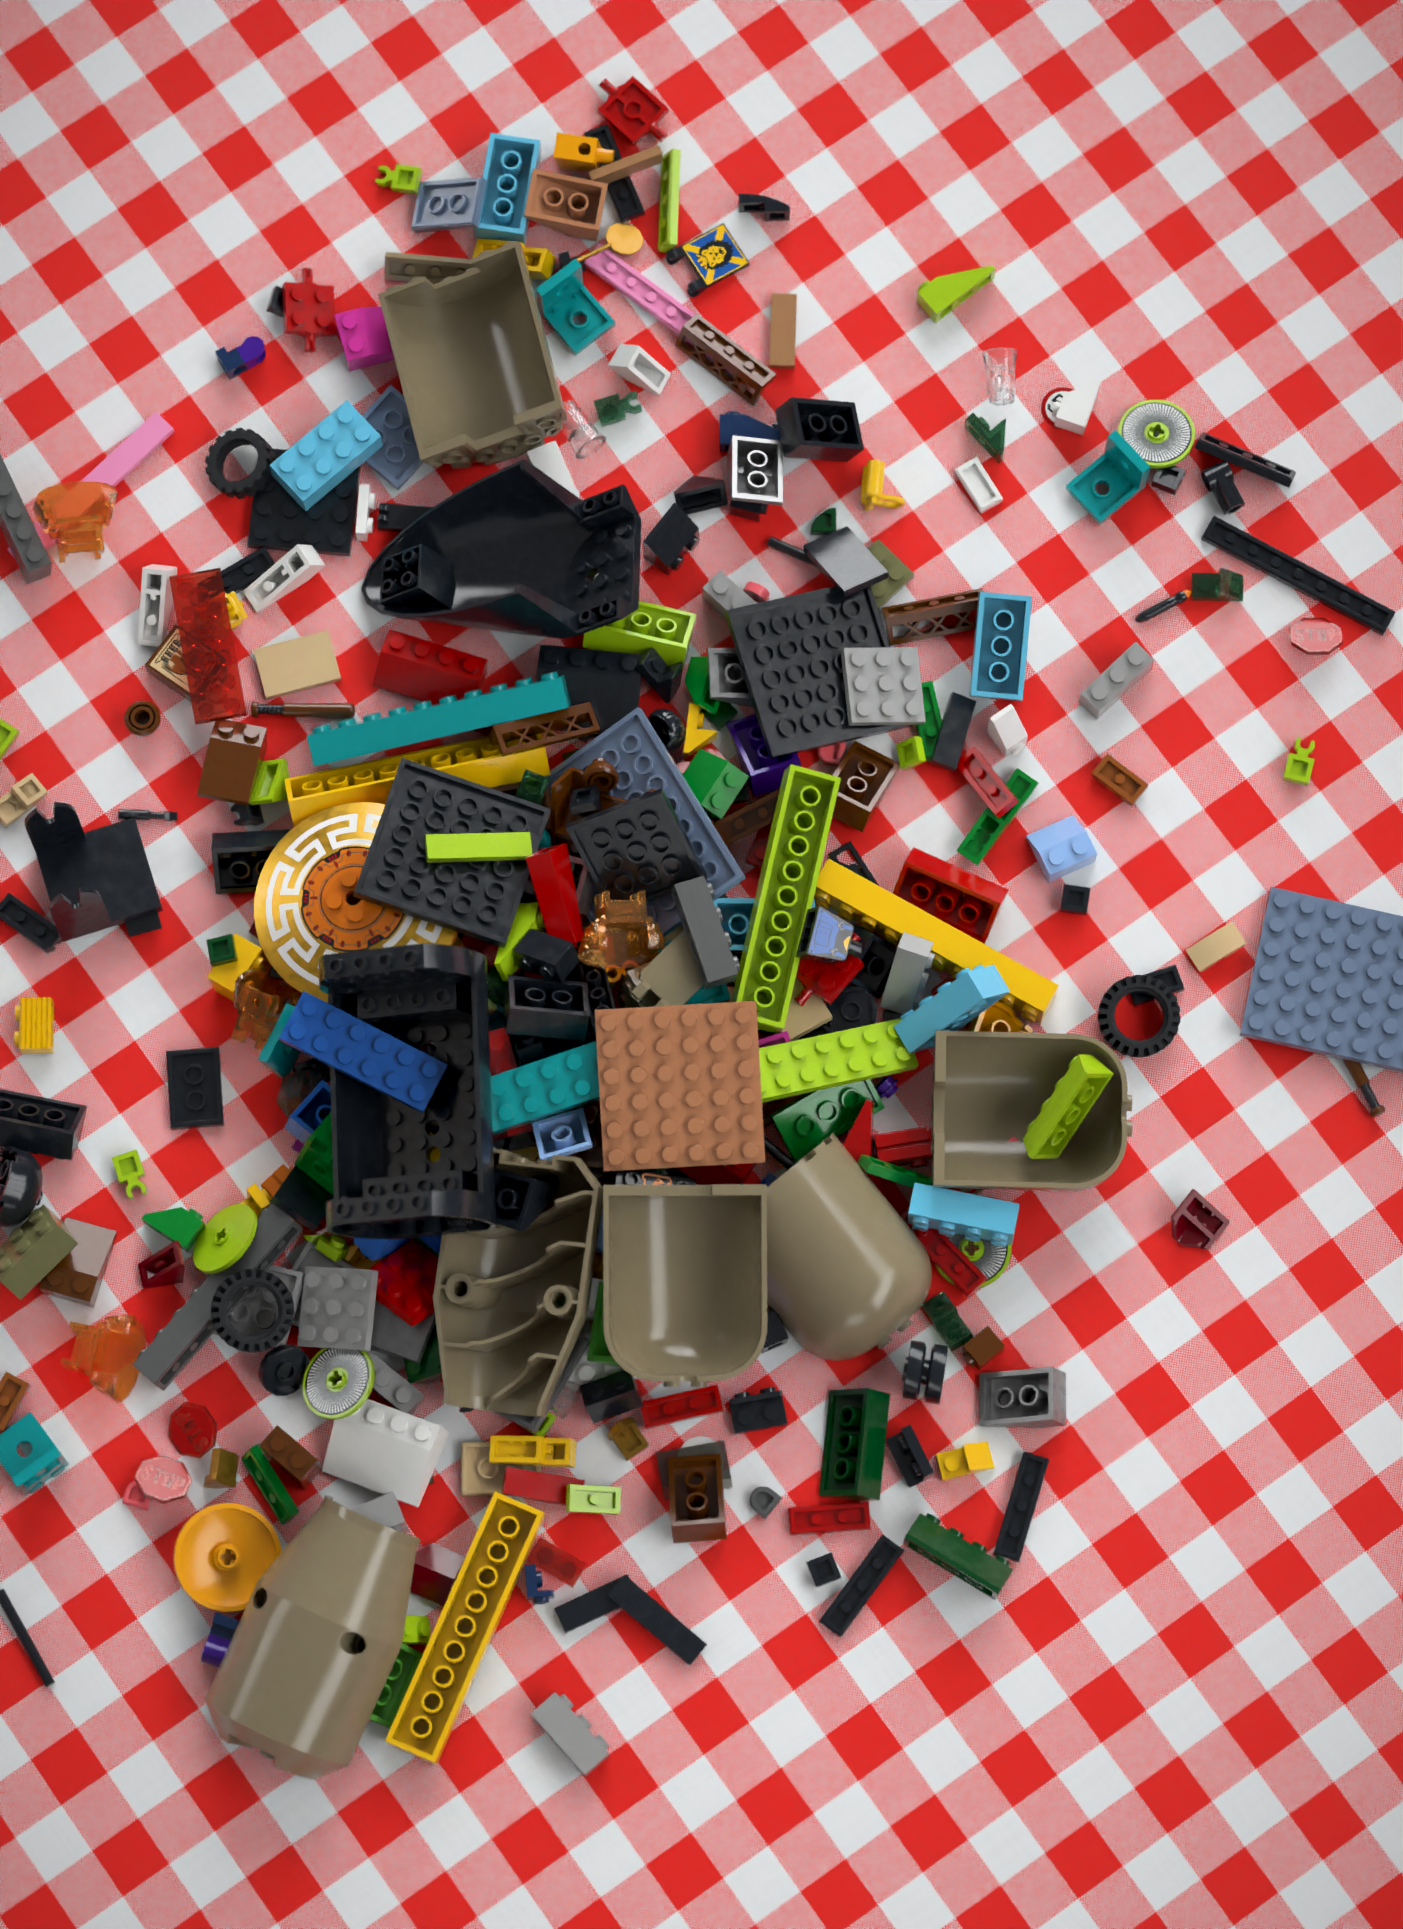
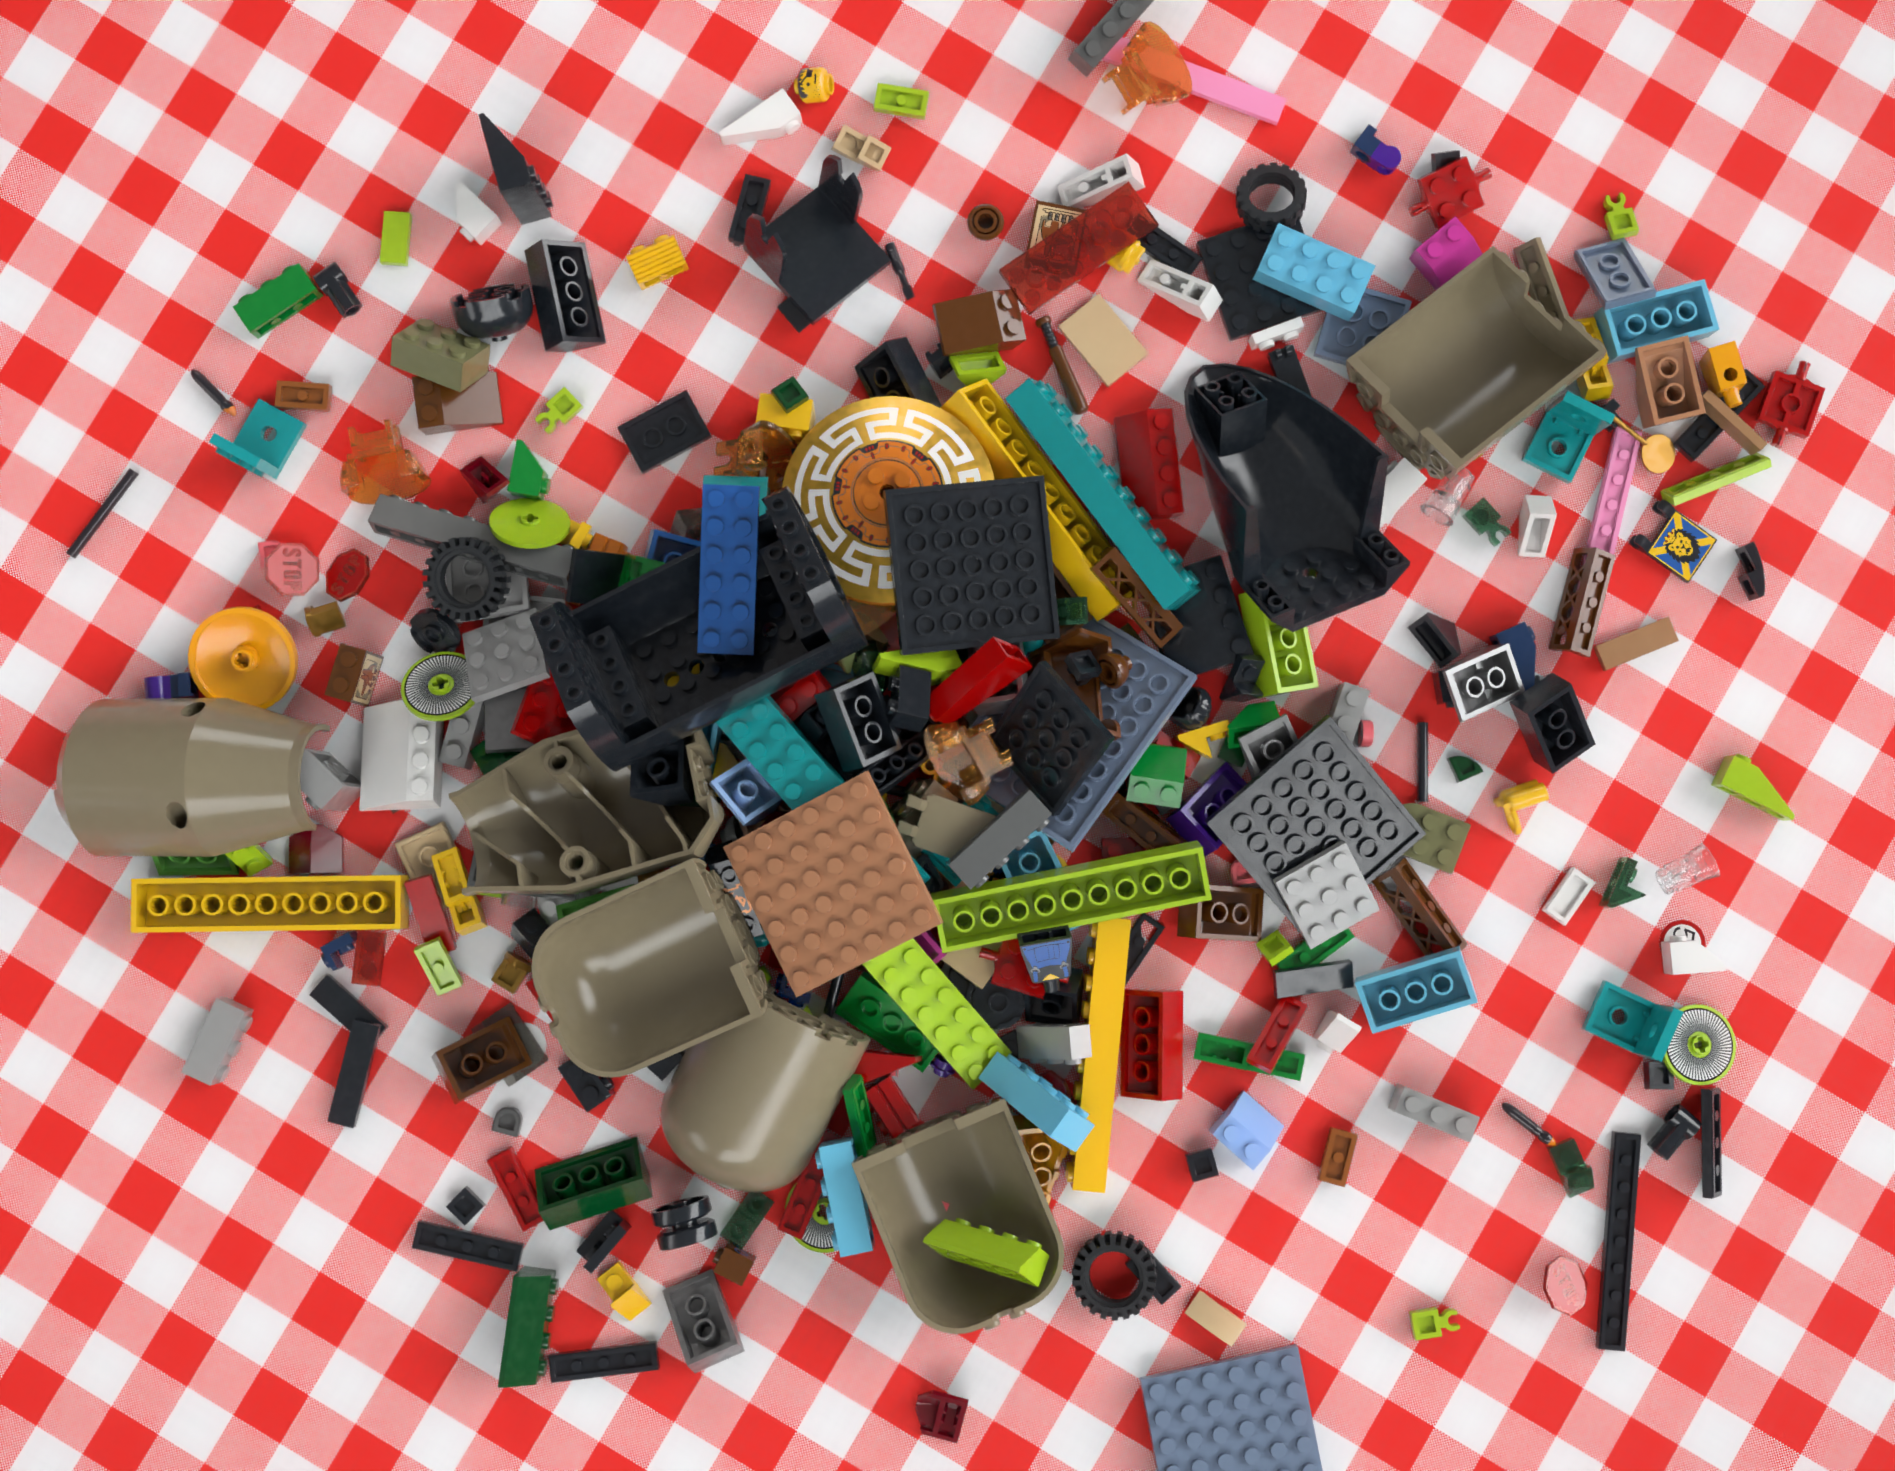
camera: 65 degrees right, 10 degrees up
(270, 1485) = (323, 672): green tile -> none
(477, 847) = (986, 586): lime tile -> none
(671, 540) = (1379, 631): black slope -> none
(845, 561) = (1433, 805): tile -> none

